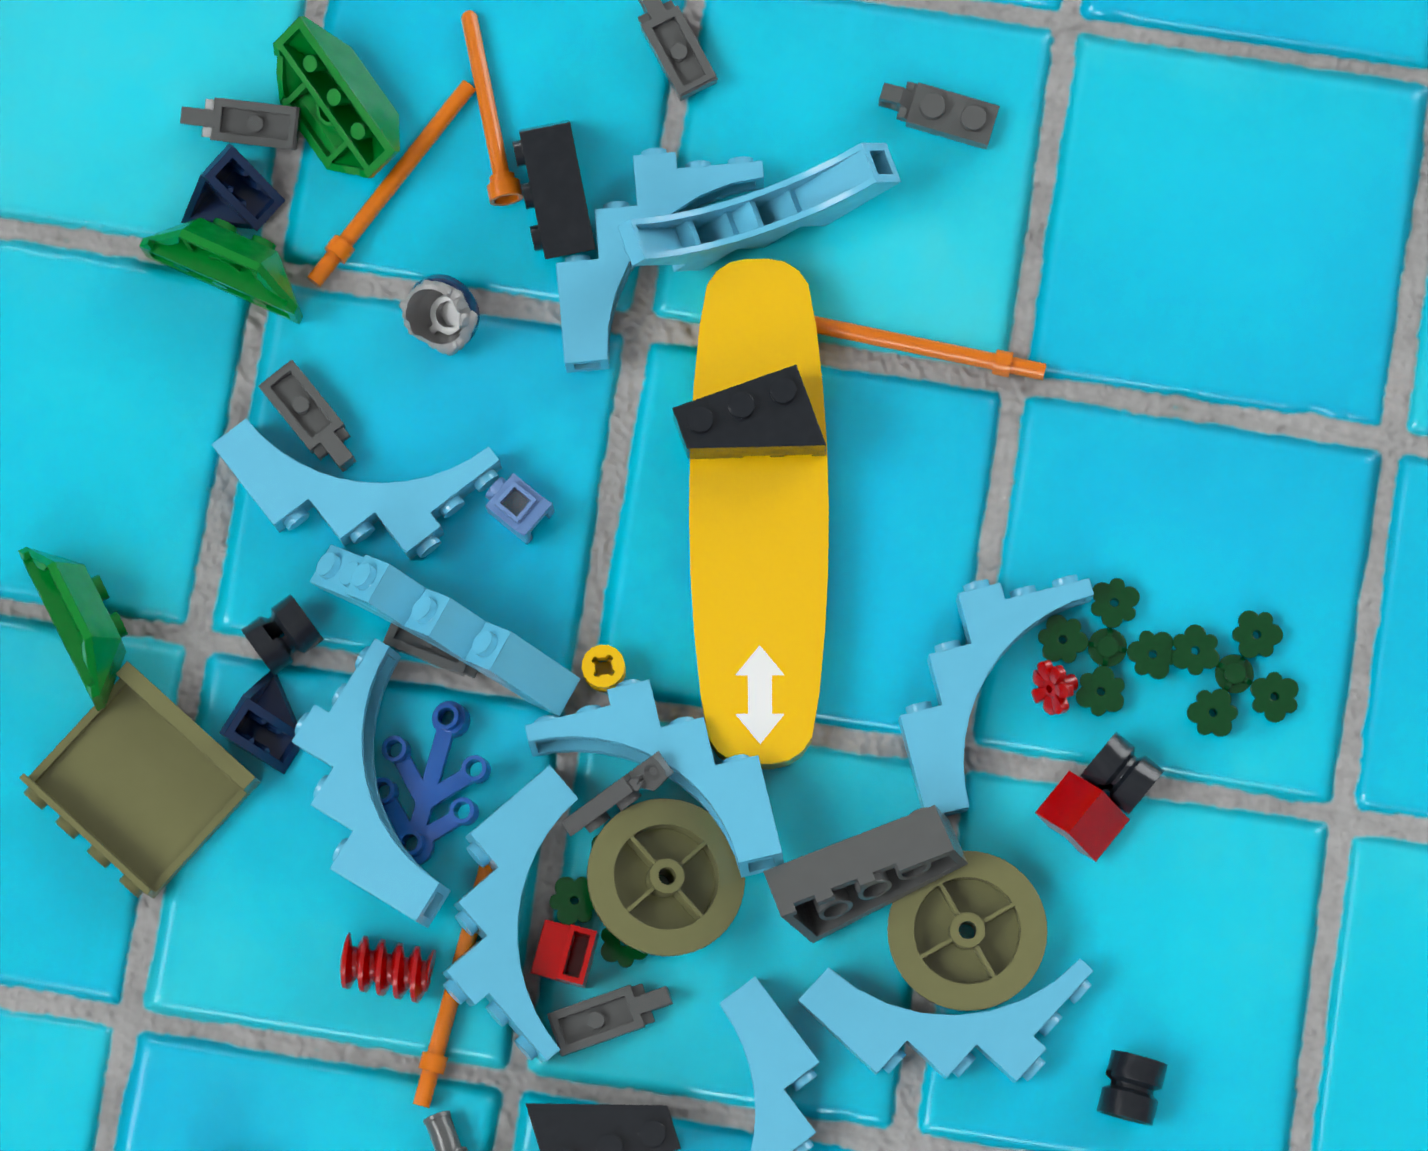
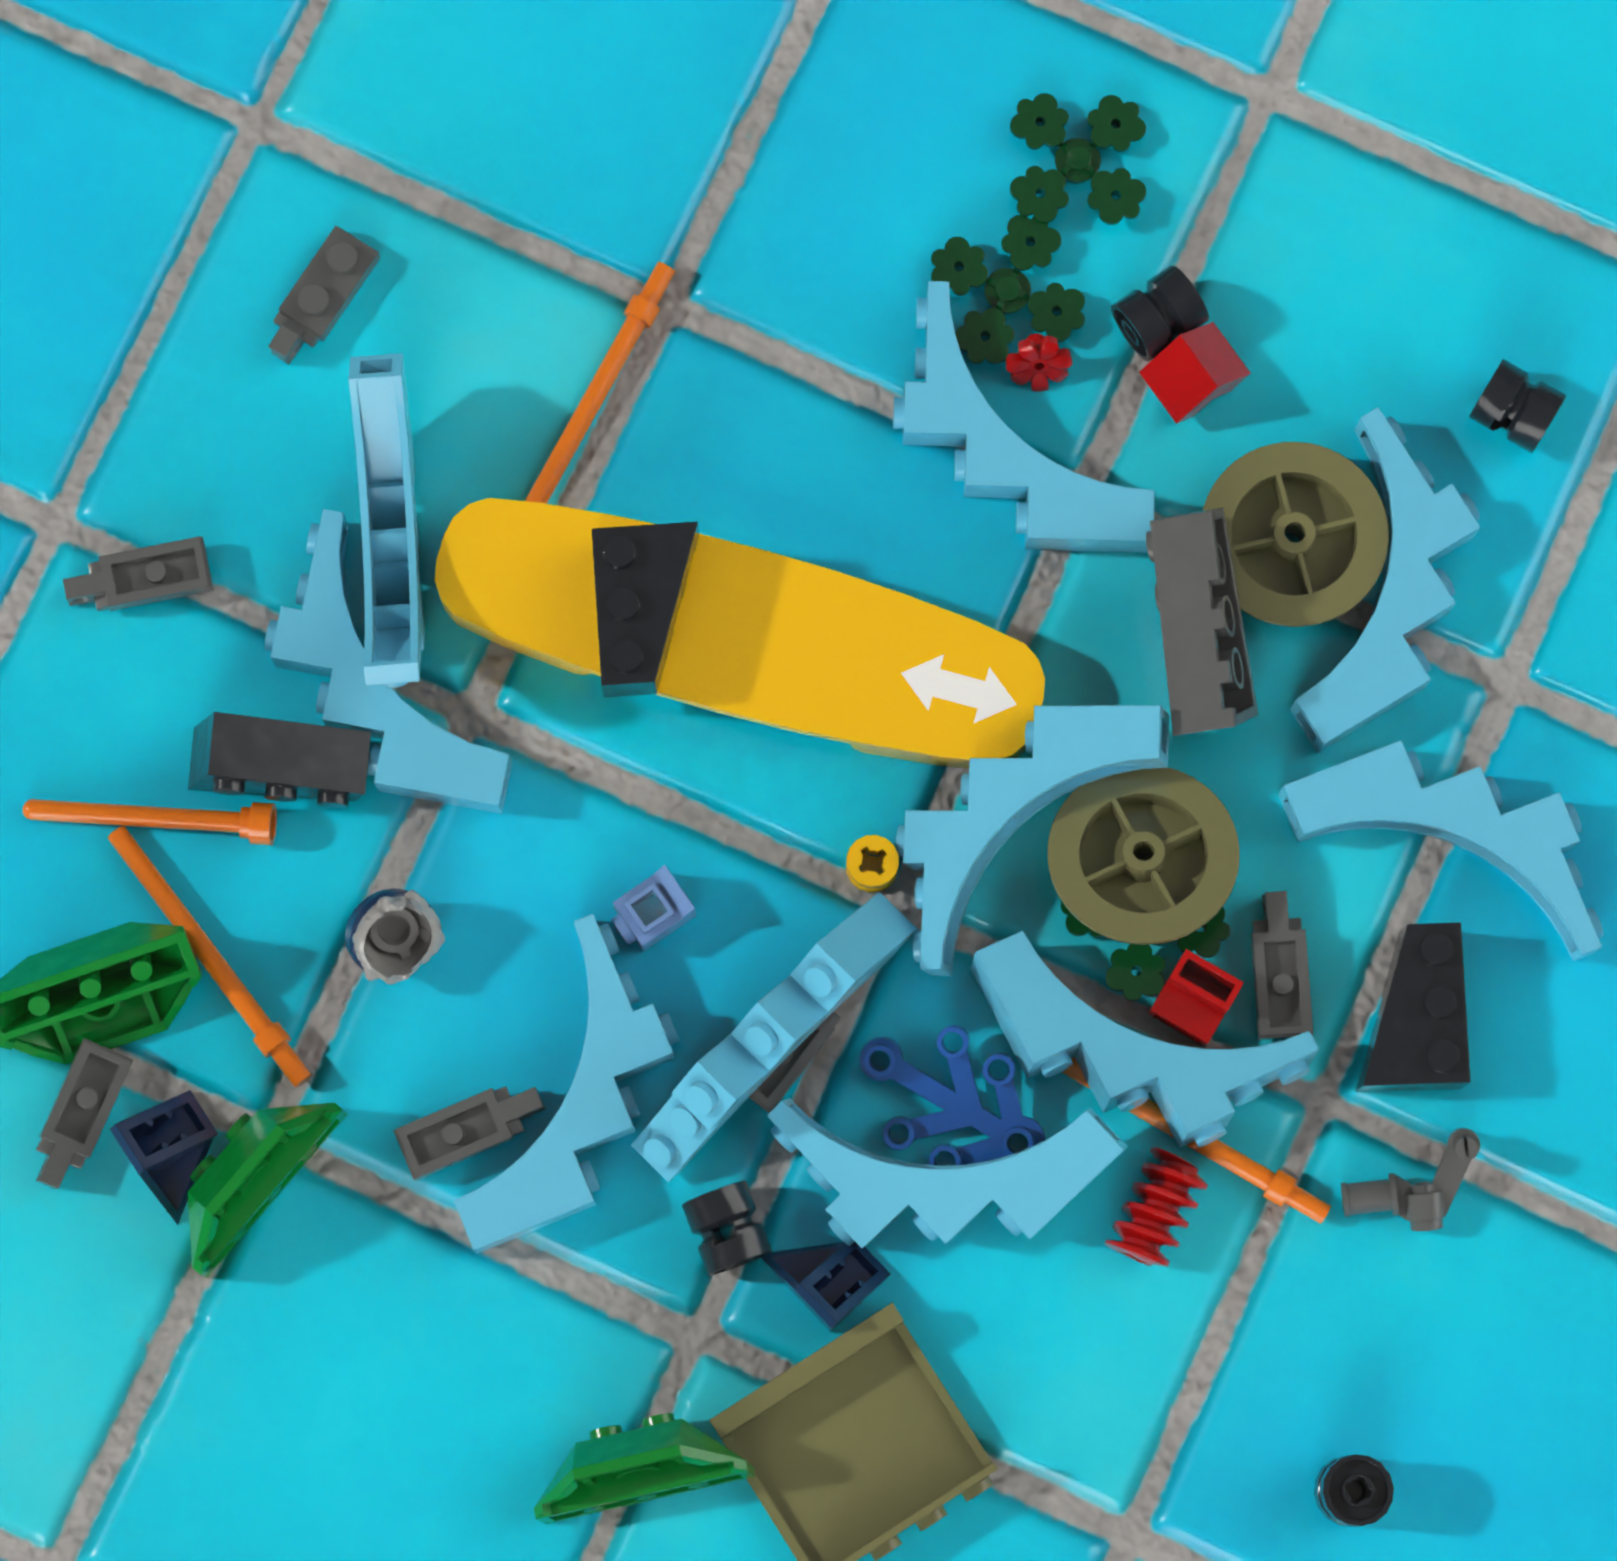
camera: 80 degrees left, 0 degrees up
(623, 792) = (1030, 881): dark grey hinge -> none

